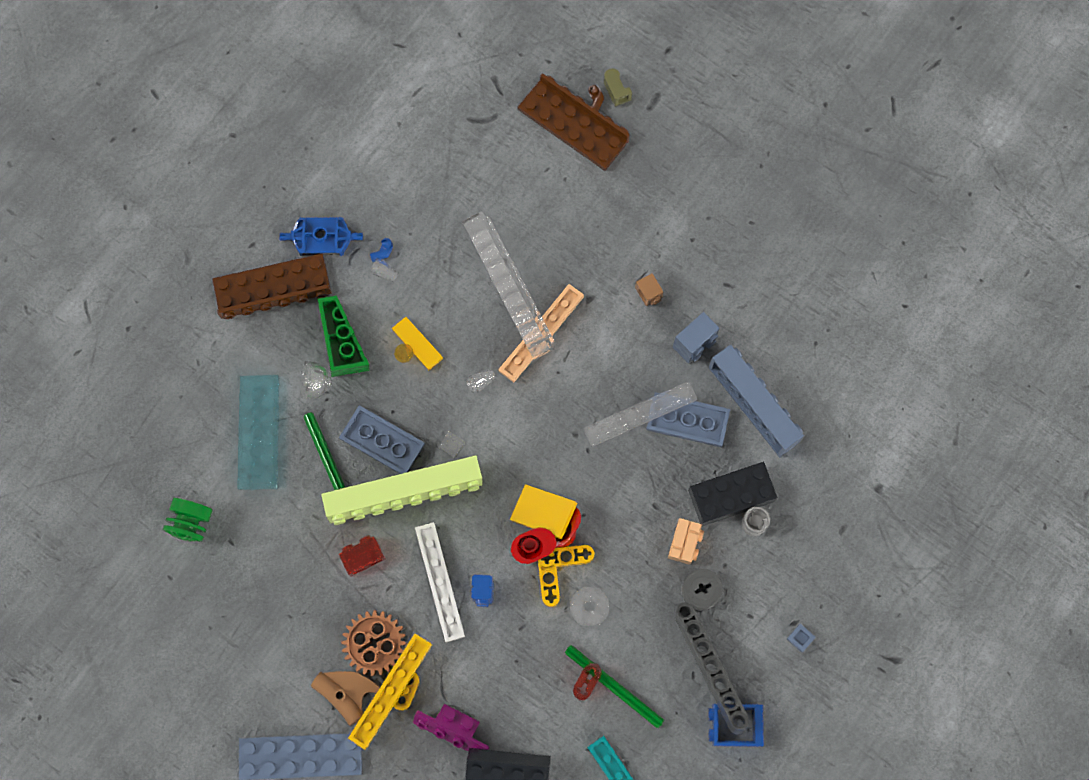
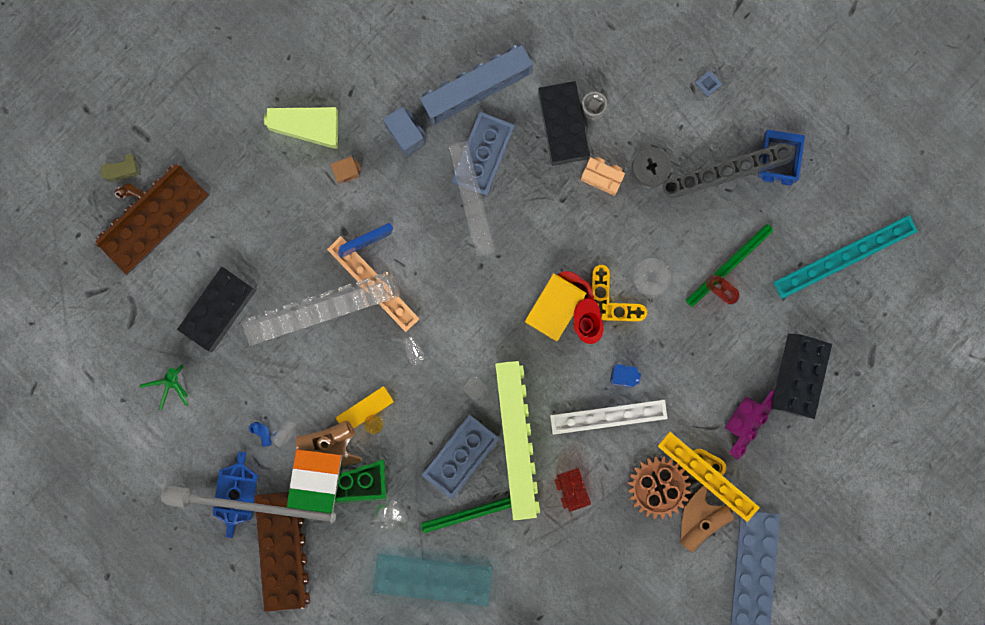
camera: 80 degrees left, 10 degrees up
(328, 299) = (310, 492): none -> flag
(378, 314) = (330, 441): none -> medium nougat pin
(419, 158) = (169, 381): none -> green plant
(495, 191) = (216, 309): none -> black brick
(582, 317) = (365, 240): none -> blue tile
(689, 252) = (307, 124): none -> yellowish green slope

